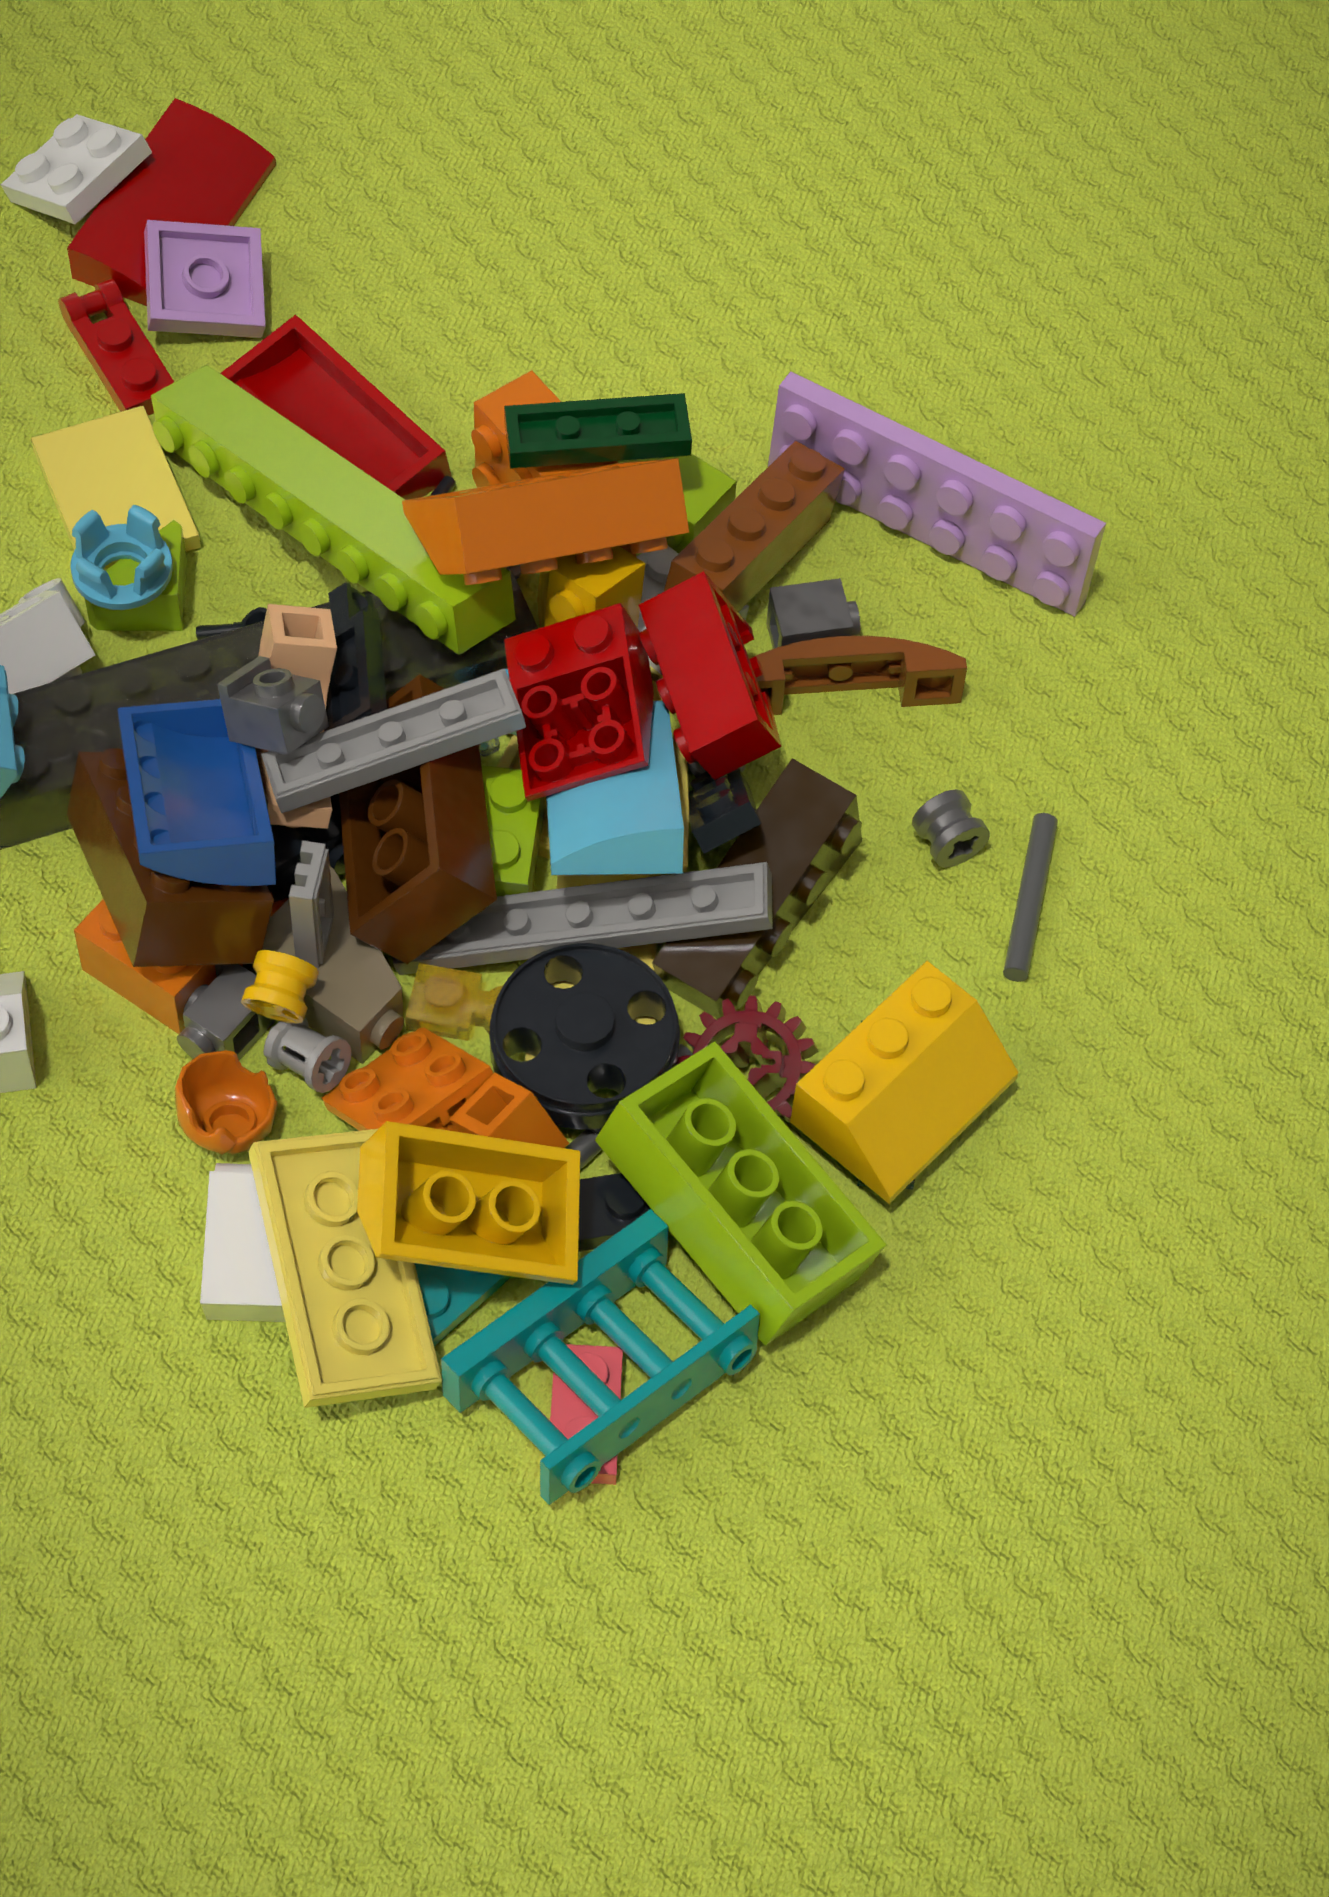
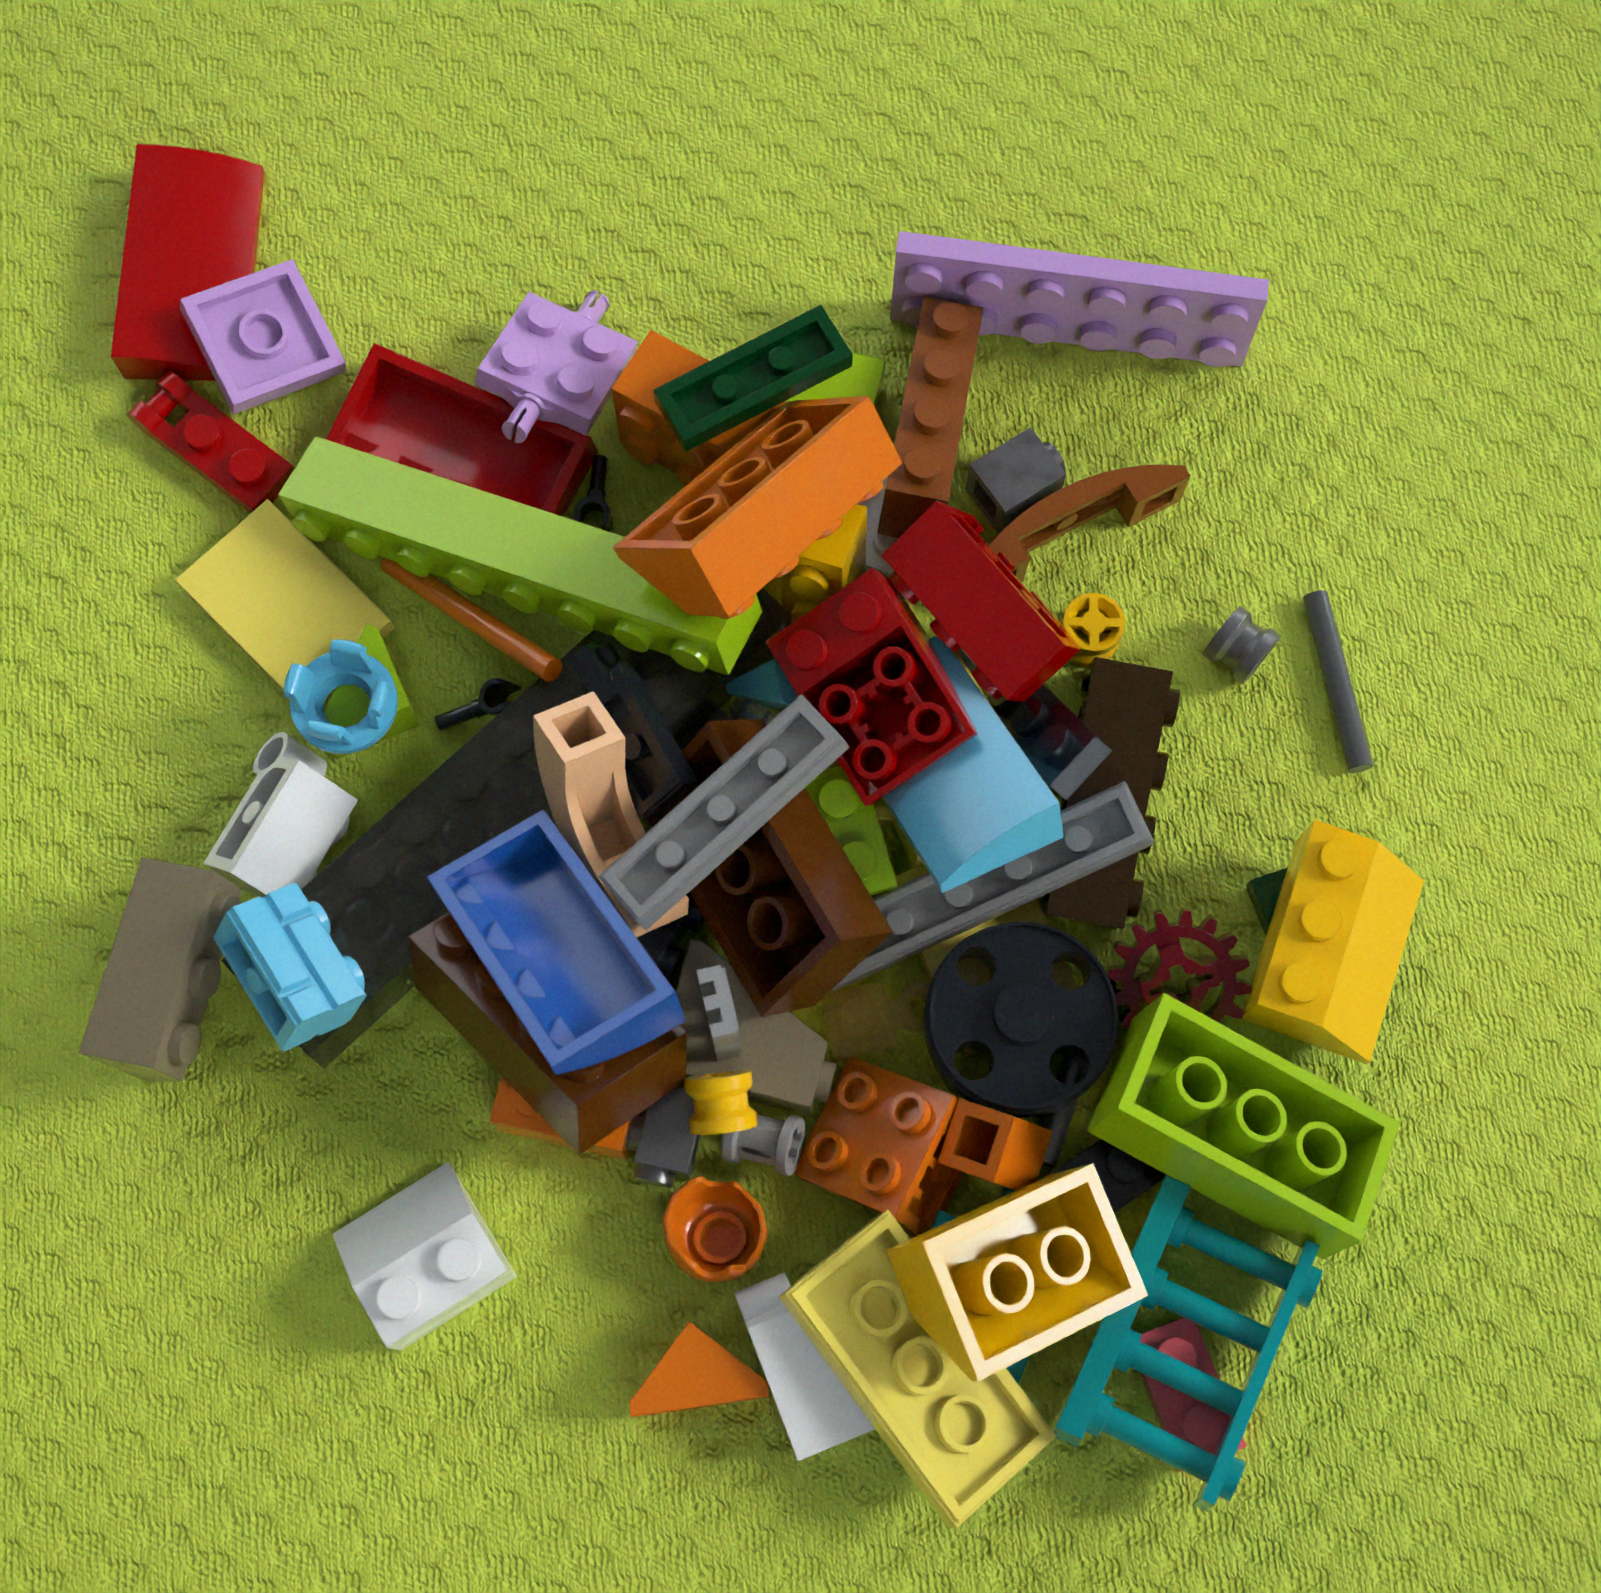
camera: 20 degrees left, 15 degrees up
(75, 168) = (75, 261): white plate -> none
(144, 1216) = (696, 1375): none -> orange slope
(268, 549) = (478, 621): none -> orange bar
(271, 707) = (593, 830): flat silver brick -> none
(437, 382) = (555, 364): none -> lavender plate
(823, 750) = (1095, 616): none -> yellow wheel

